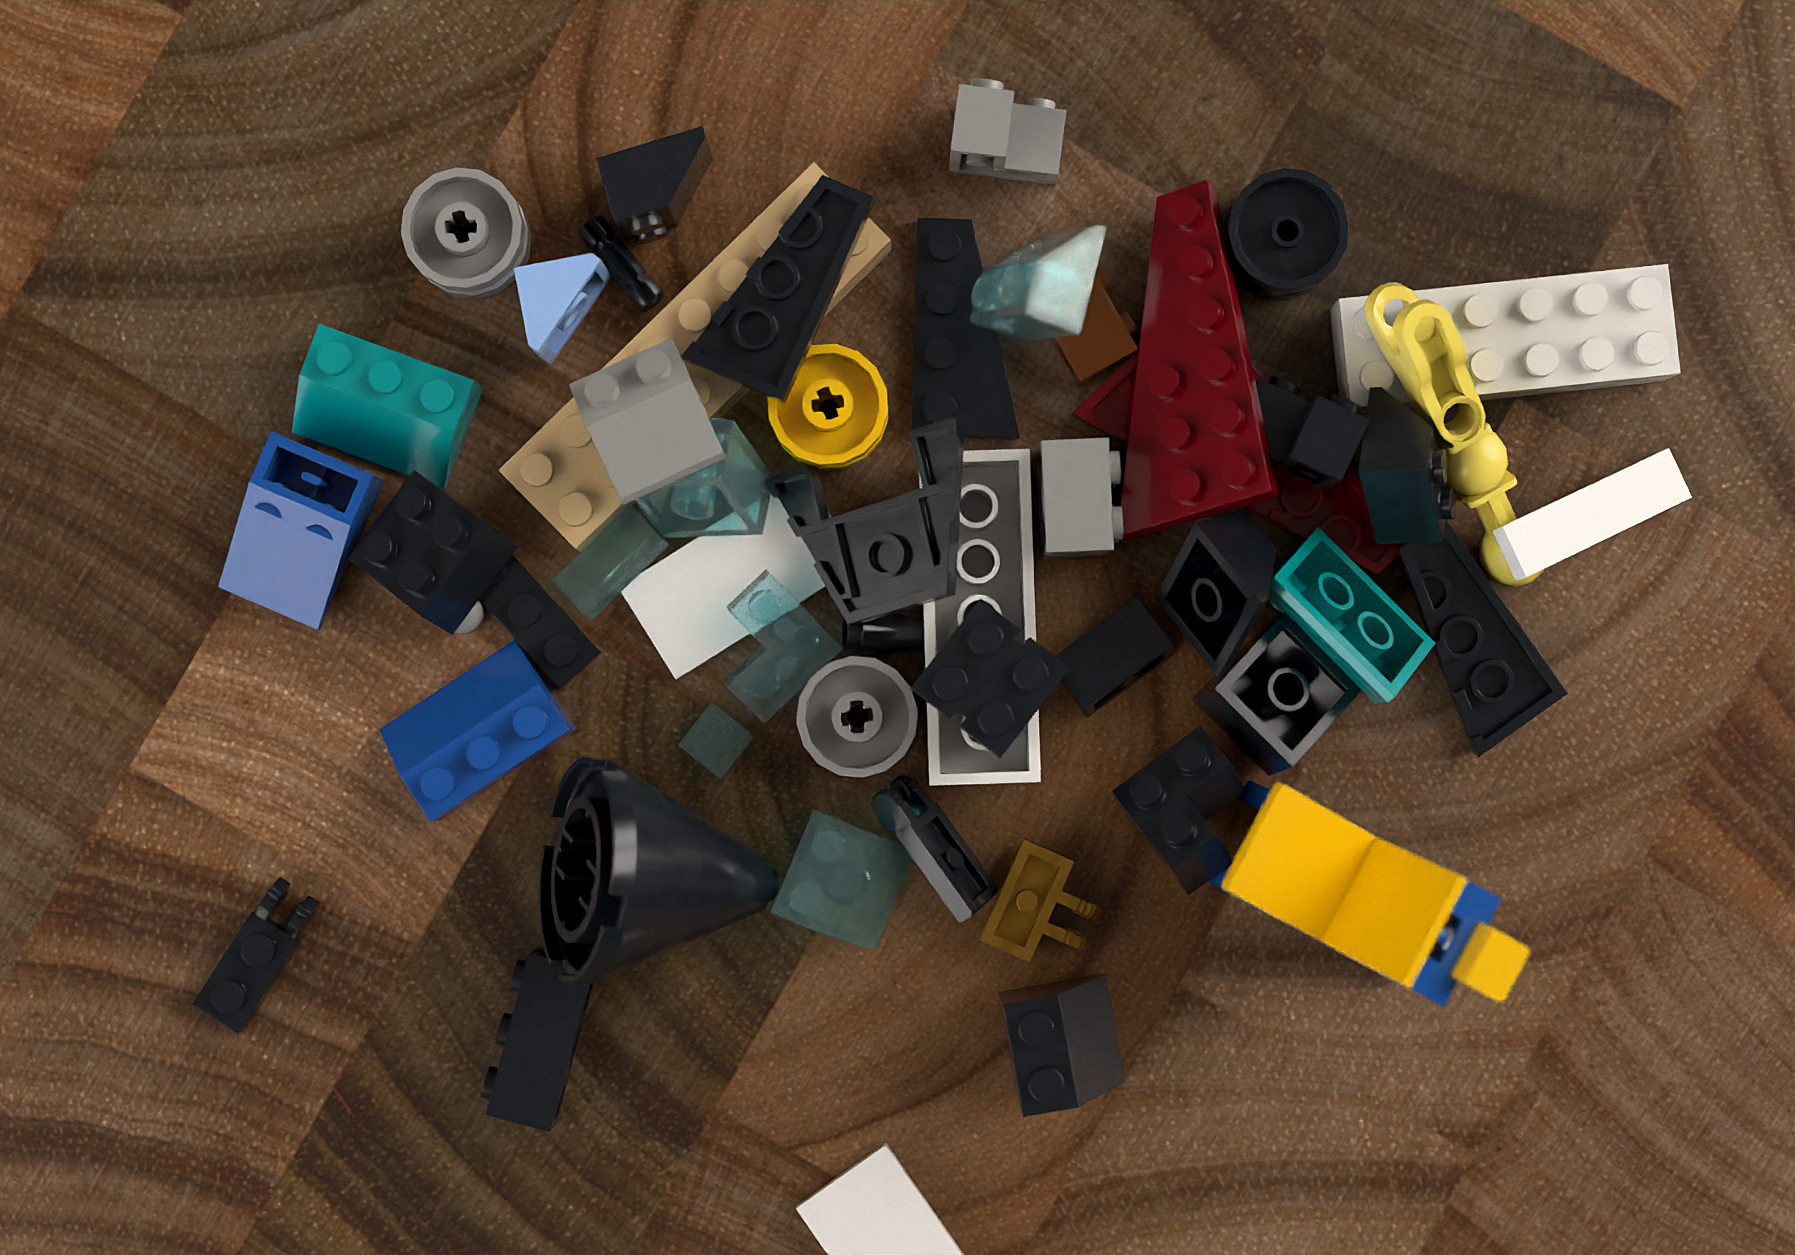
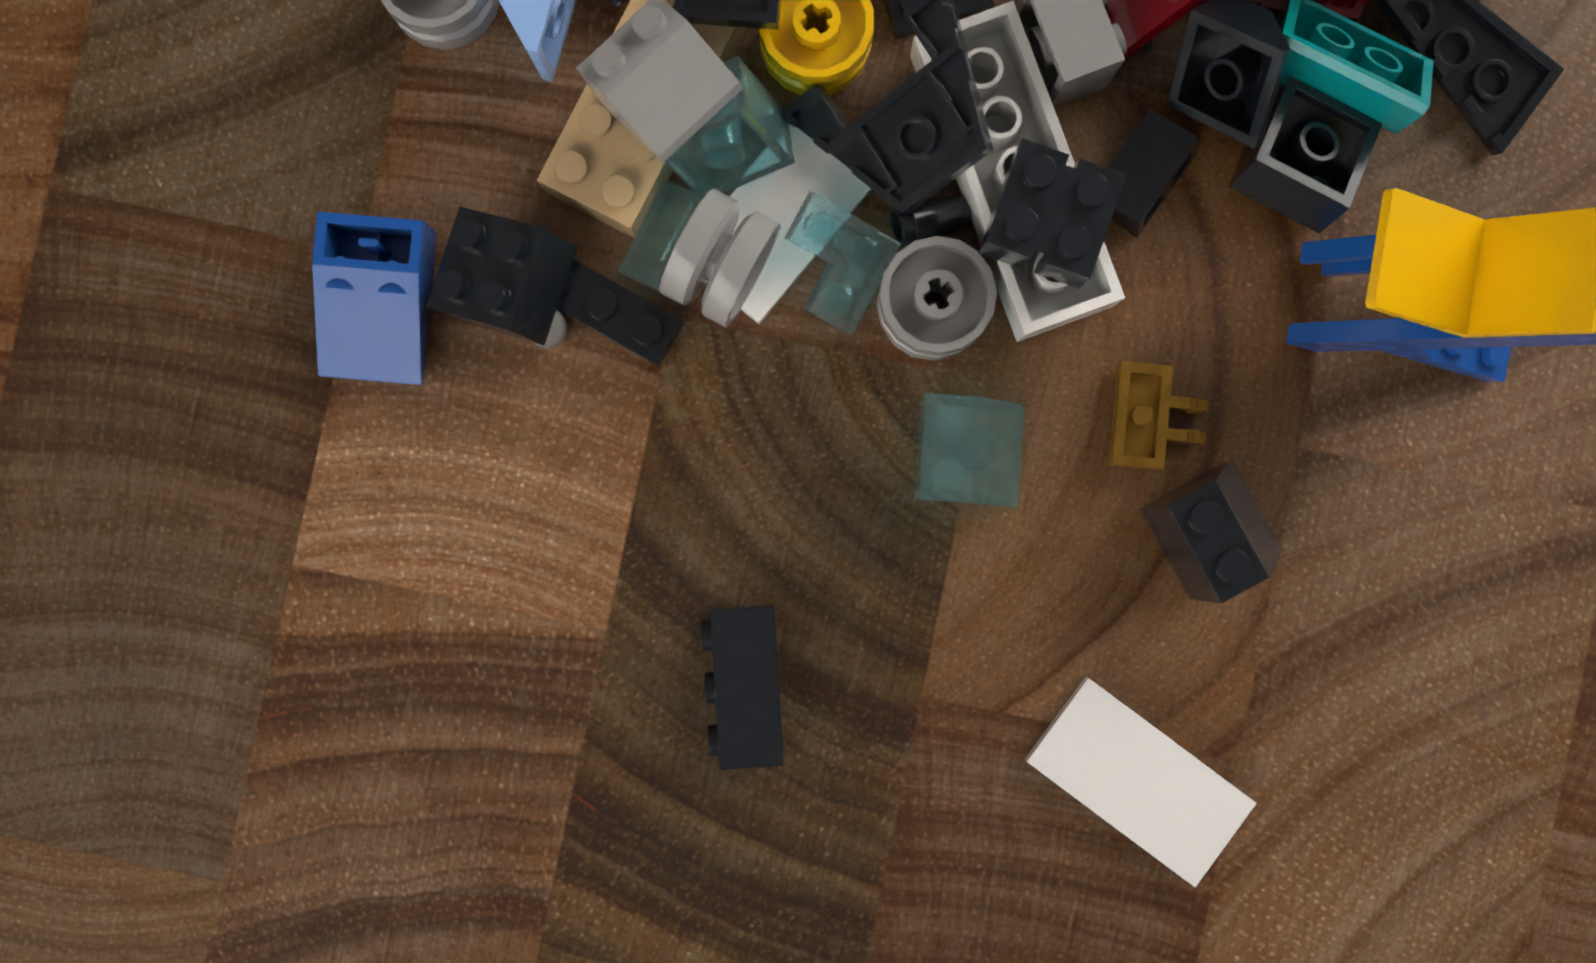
camera: 20 degrees left, 0 degrees up
(254, 960) = (462, 701): black hinge -> none
(383, 405) = (412, 159): teal slope -> none
(475, 731) = (594, 429): blue slope -> none
(637, 874) = (782, 503): black cone -> none
(645, 602) = (715, 256): none -> light grey wheel
(716, 740) = (813, 366): clear light blue tile -> none
(935, 846) = (1043, 394): black hinge -> none
(1173, 802) = (1249, 283): black brick -> none

